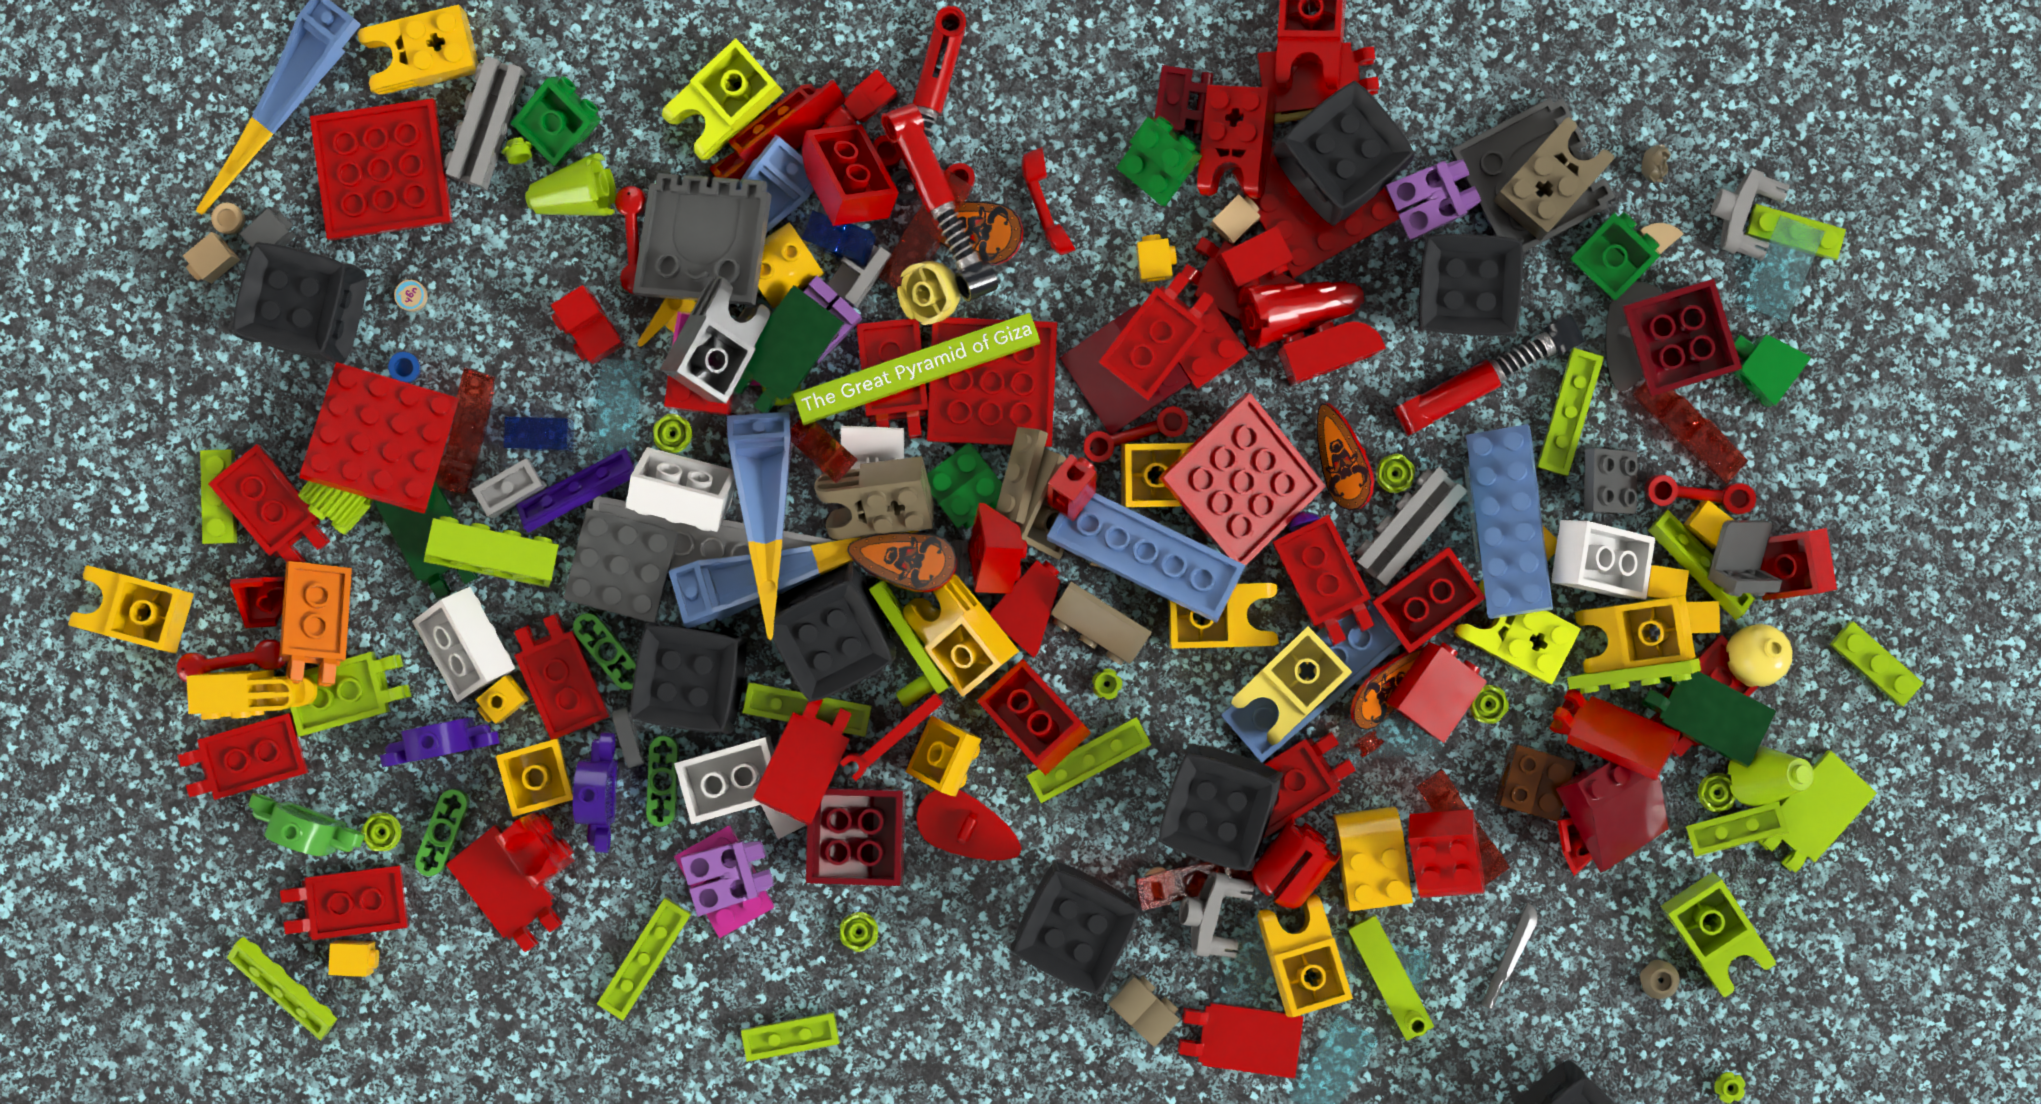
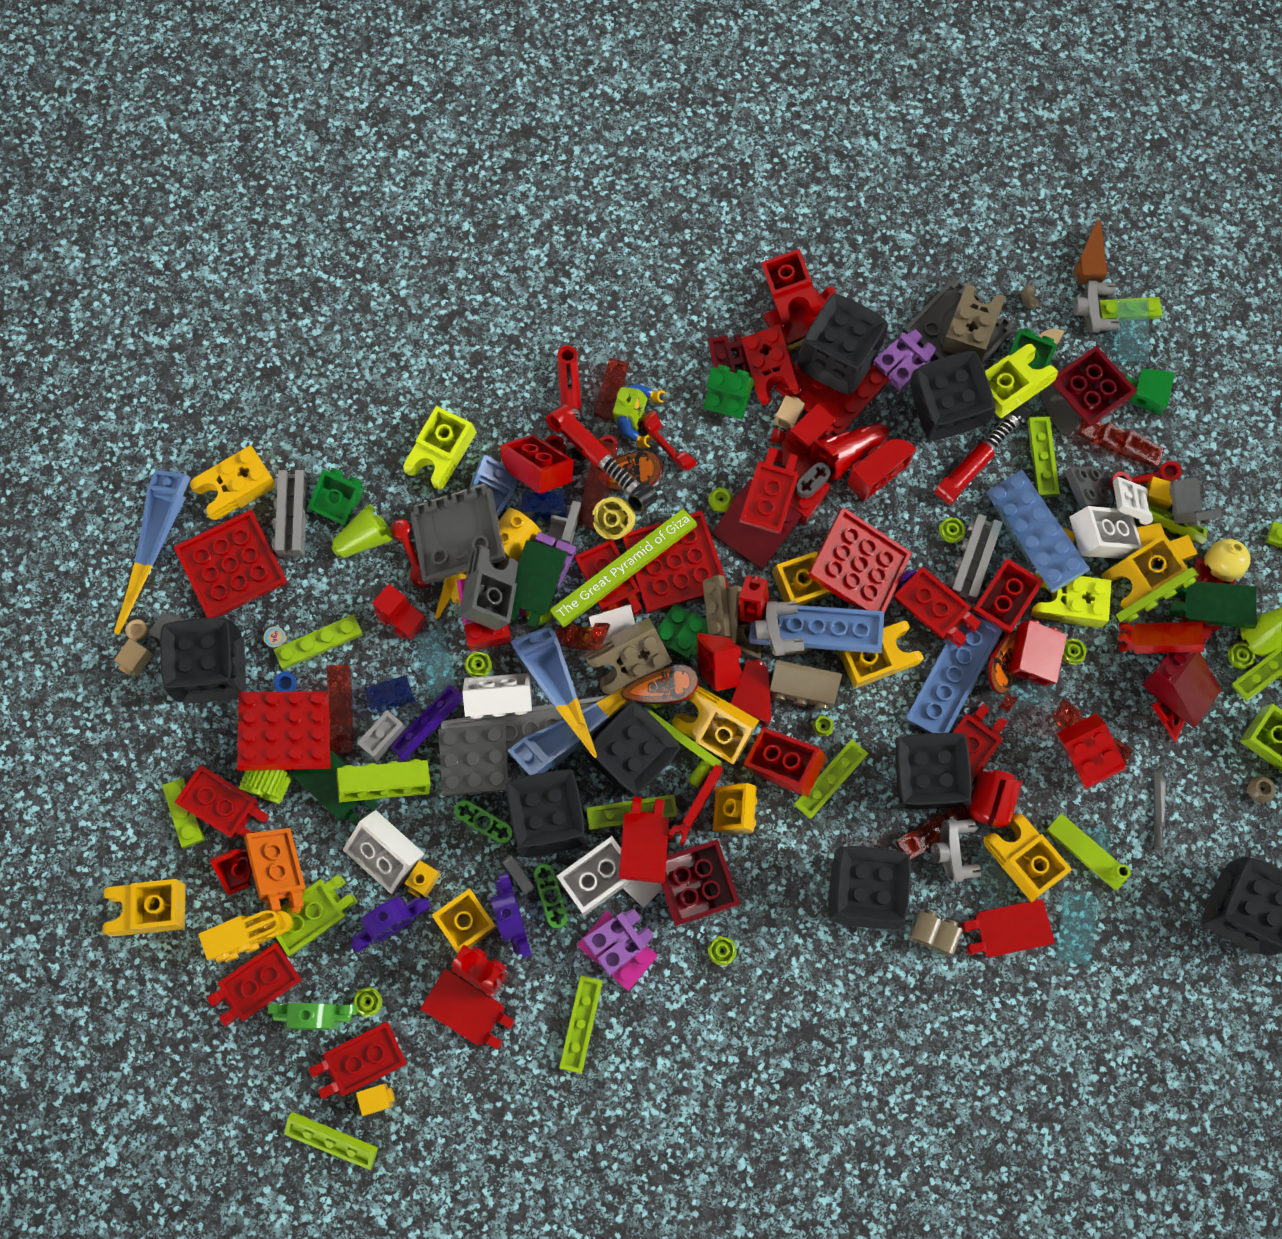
camera: 20 degrees left, 15 degrees down
(264, 655) = (248, 906): red piece -> none
(442, 857) = (403, 1004): bright green beam -> none
(467, 322) = (318, 642): none -> lime plate
(517, 151) = (317, 524): lime plate -> none
(559, 679) = (457, 852): red tile -> none
(788, 119) = (487, 444): red wedge -> none
(790, 1036) = (702, 1042): lime plate -> none
(863, 102) = (530, 419): red piece -> none
(965, 827) = (766, 854): red shield -> none
(997, 93) = (612, 382): none -> clear red plate
(1013, 135) = (630, 410): none -> torso
(1077, 535) = (769, 628): none -> light grey connector
(1088, 303) = (717, 505): none -> lime plate
(1155, 258) = (748, 452): yellow brick -> none
(1170, 422) = (797, 547): red piece -> none
(1219, 334) = (810, 477): none -> dark grey beam
(1289, 691) = (944, 682): light yellow brick -> none
(1343, 460) = (916, 531): shield -> none
(1372, 859) = (1045, 776): yellow brick -> none
(1531, 782) = (1123, 689): reddish brown brick -> none
(1579, 292) = (1016, 382): none -> neon yellow brick
(1654, 524) = (1132, 500): none -> white plate
(1771, 140) = (1092, 261): none -> dark orange slope
(1801, 563) = (1225, 493): red slope -> none

